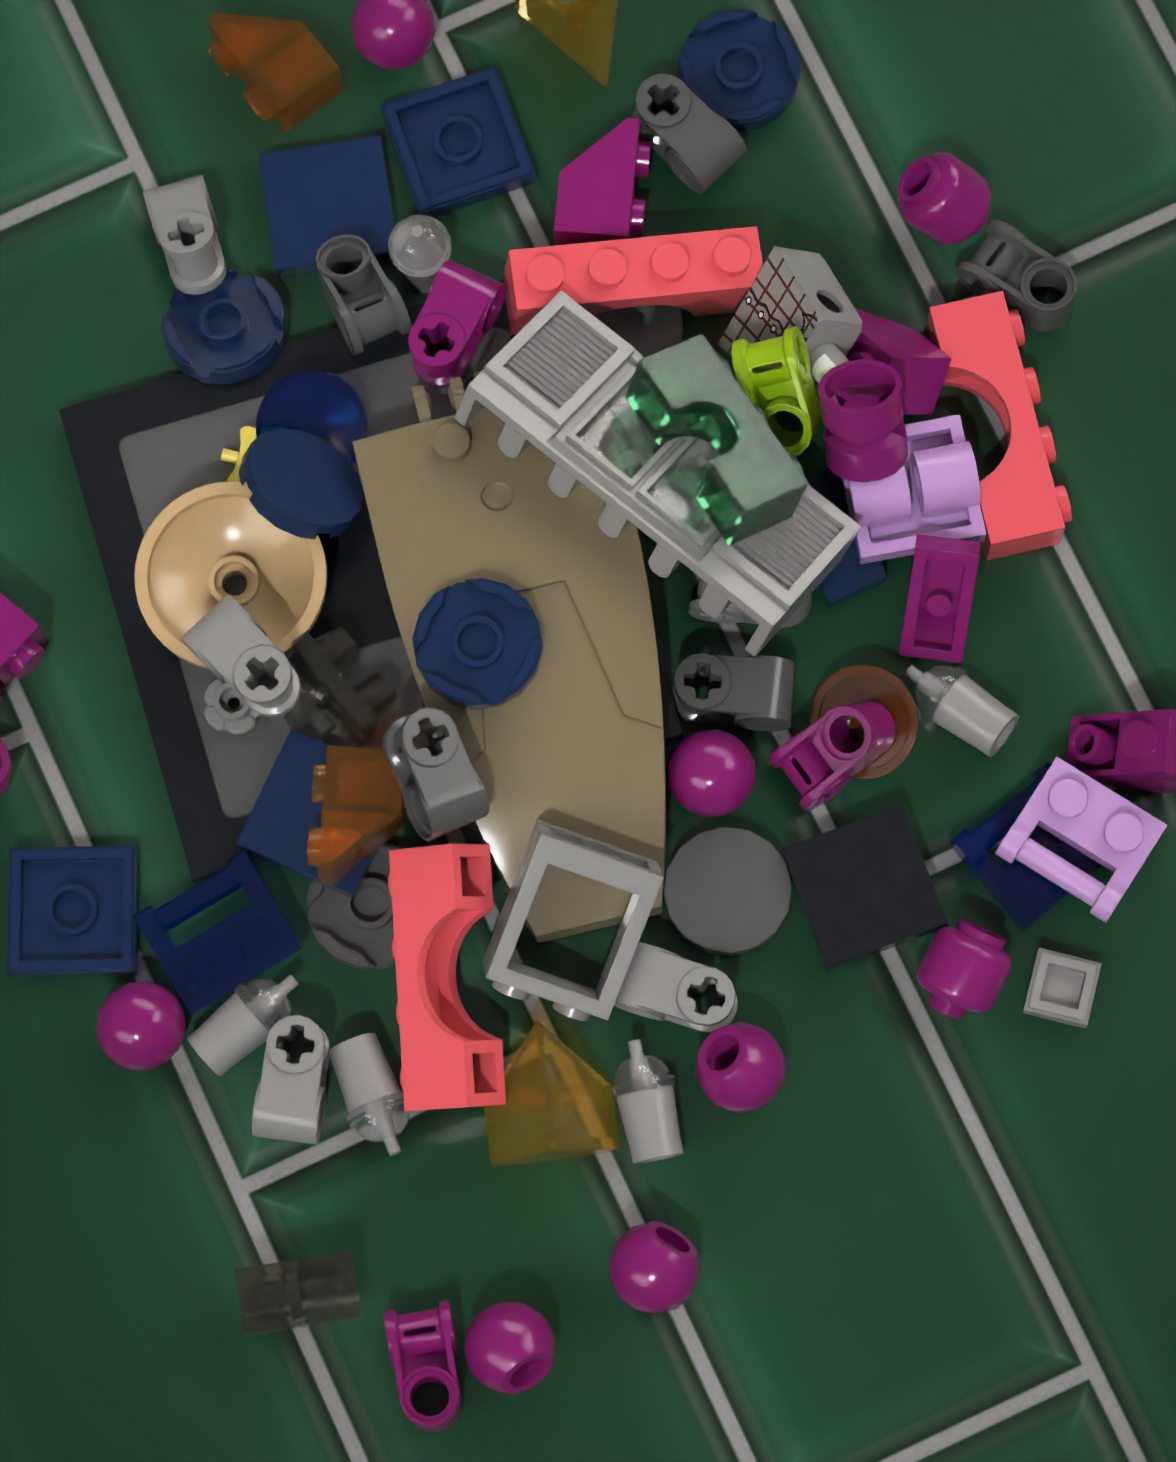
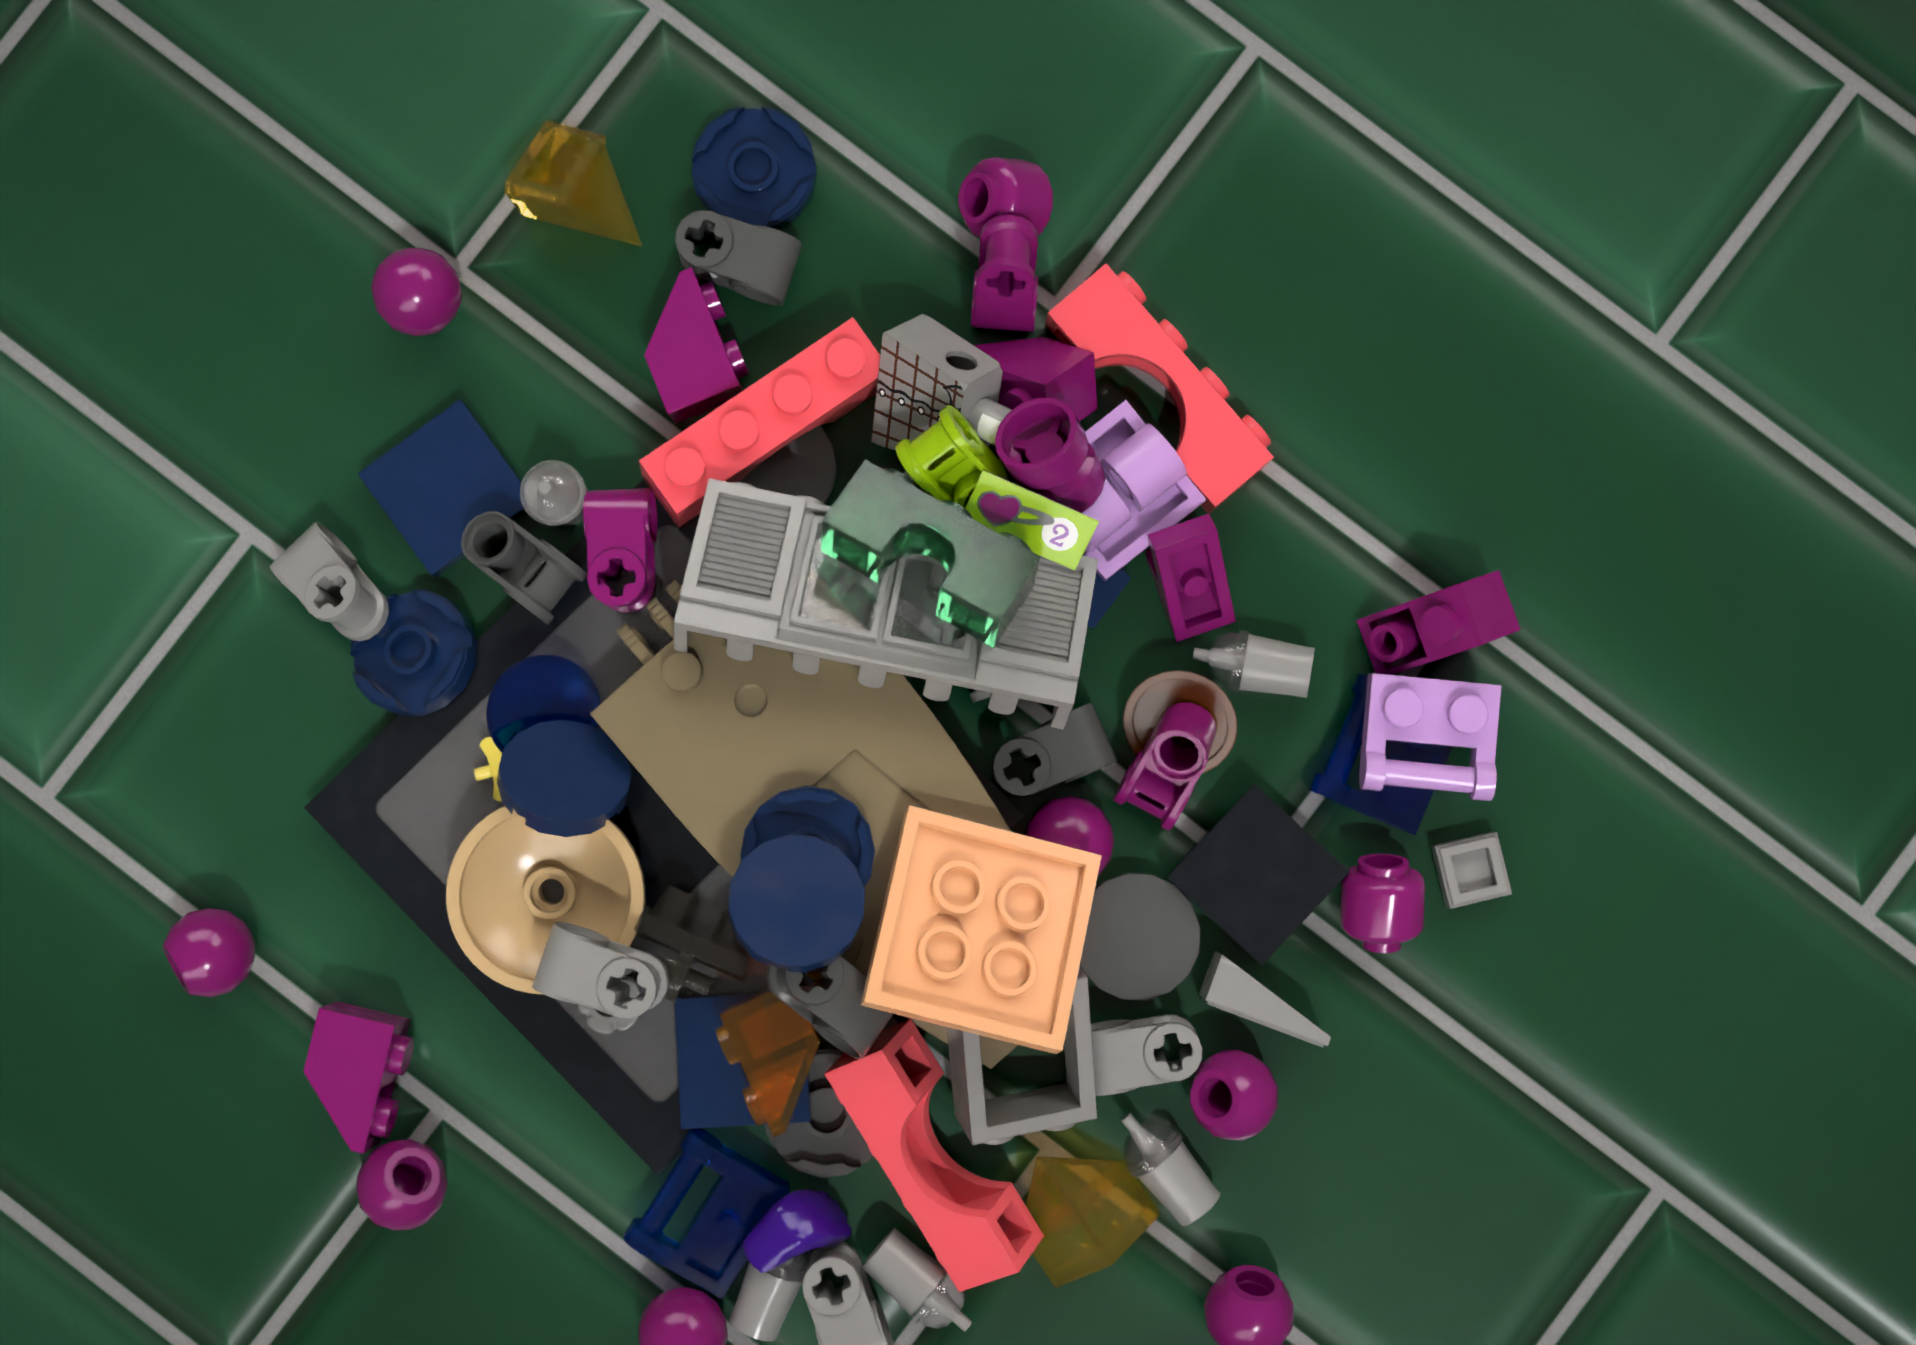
camera: 30 degrees left, 10 degrees up
(73, 911) = (565, 1255): dark blue tile -> none
(279, 63) = (328, 376): clear orange slope -> none
(290, 975) = (796, 1225): none -> dark purple hair
(446, 668) = (796, 903): none -> dark blue tile
(458, 143) = (534, 368): dark blue tile -> none
(593, 780) = (982, 930): none -> light nougat plate
(796, 988) = (1239, 993): none -> light grey slope
(832, 473) = (1041, 523): none -> lime sticker
(910, 261) = (1006, 275): none -> magenta piece
(1018, 267) = (1105, 237): dark grey piece -> none

